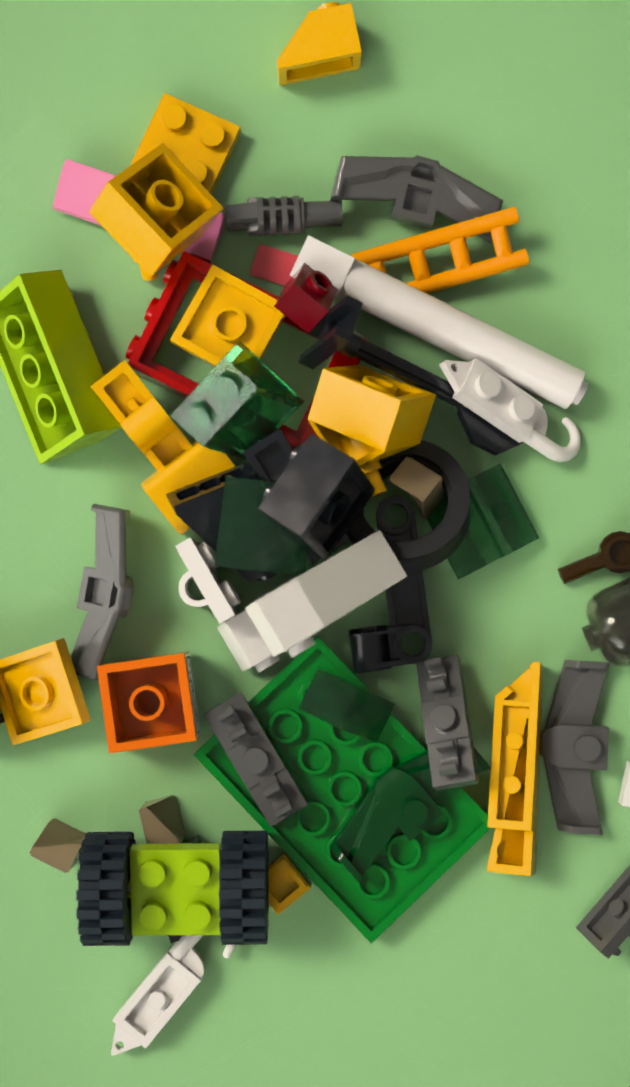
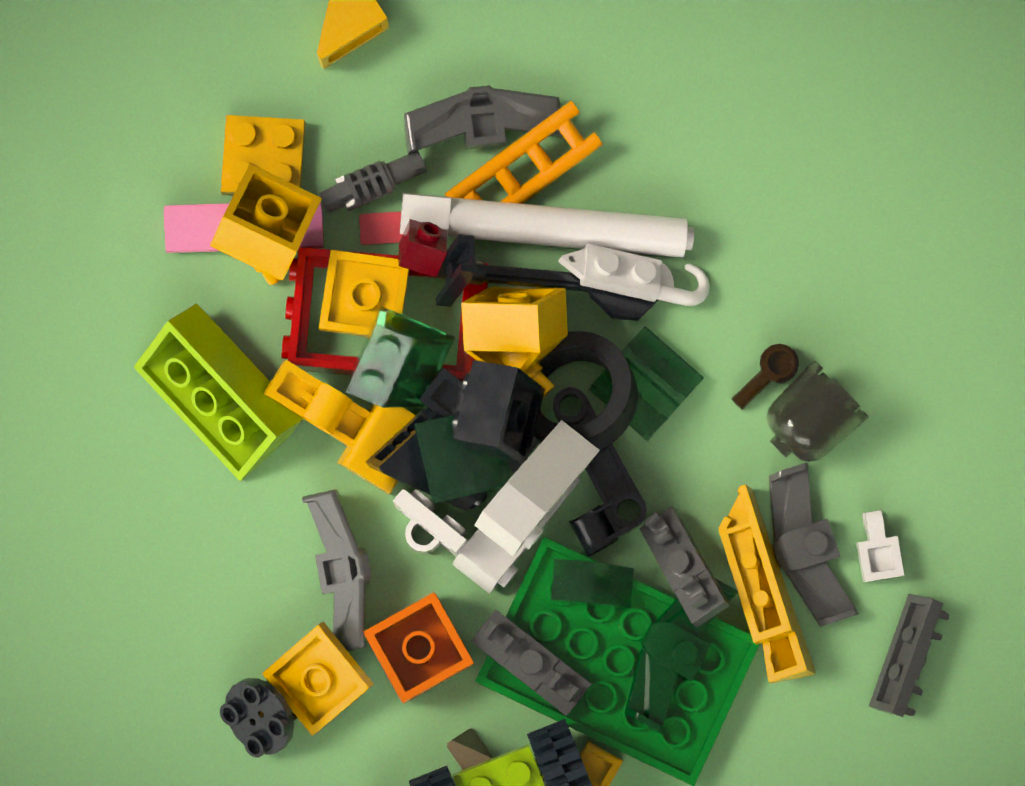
camera: 20 degrees left, 5 degrees down
(420, 483) = (581, 368): dark tan slope -> none

